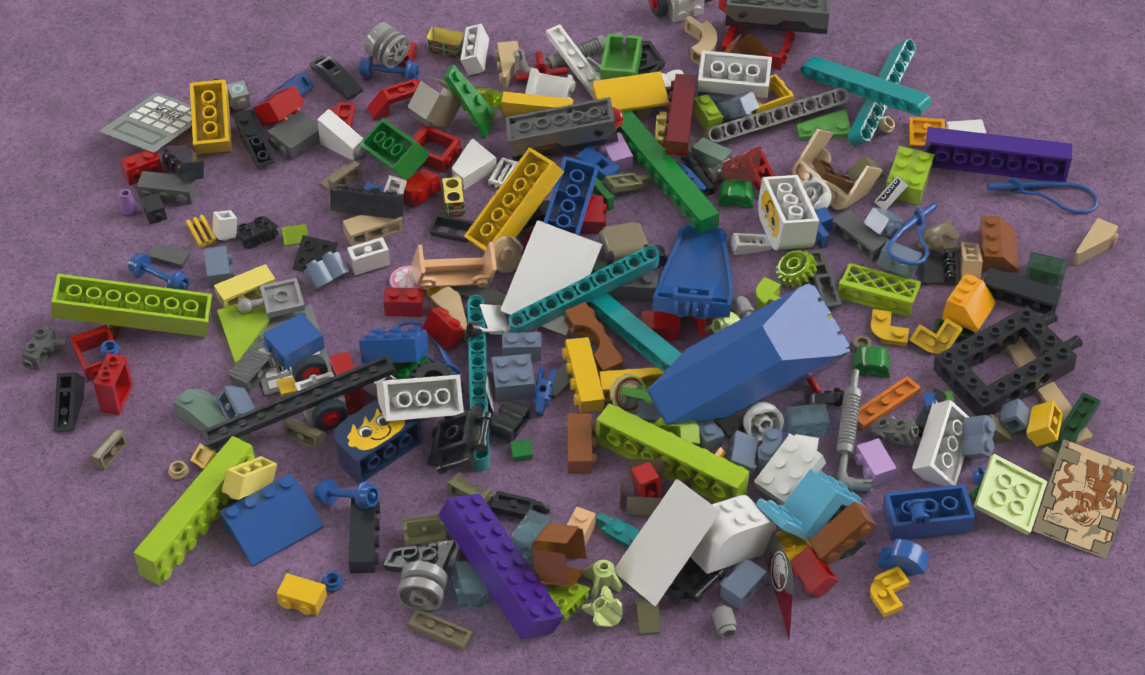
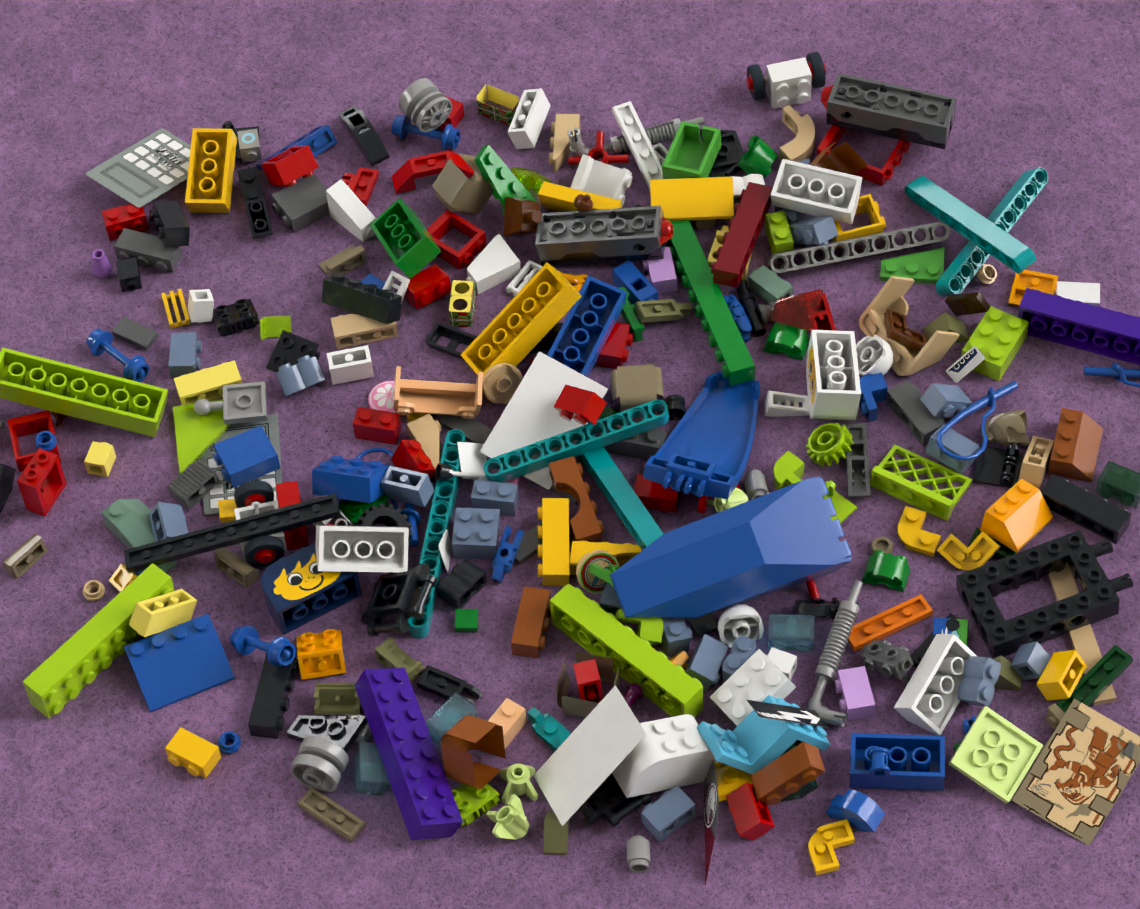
camera: 15 degrees right, 5 degrees up
(160, 360) = (100, 459): none -> light yellow brick
(399, 495) = (320, 654): none -> light orange bracket
(445, 345) = (407, 486): none -> sand blue brick
(489, 123) = (521, 217): none -> reddish brown torso
(543, 103) = (583, 203): none -> reddish brown piece
(583, 258) = (579, 405): none -> red brick
(674, 57) = (758, 157): none -> green cylinder
(831, 480) = (786, 713): none -> black sticker
(880, 146) = (967, 304): none -> dark brown tile

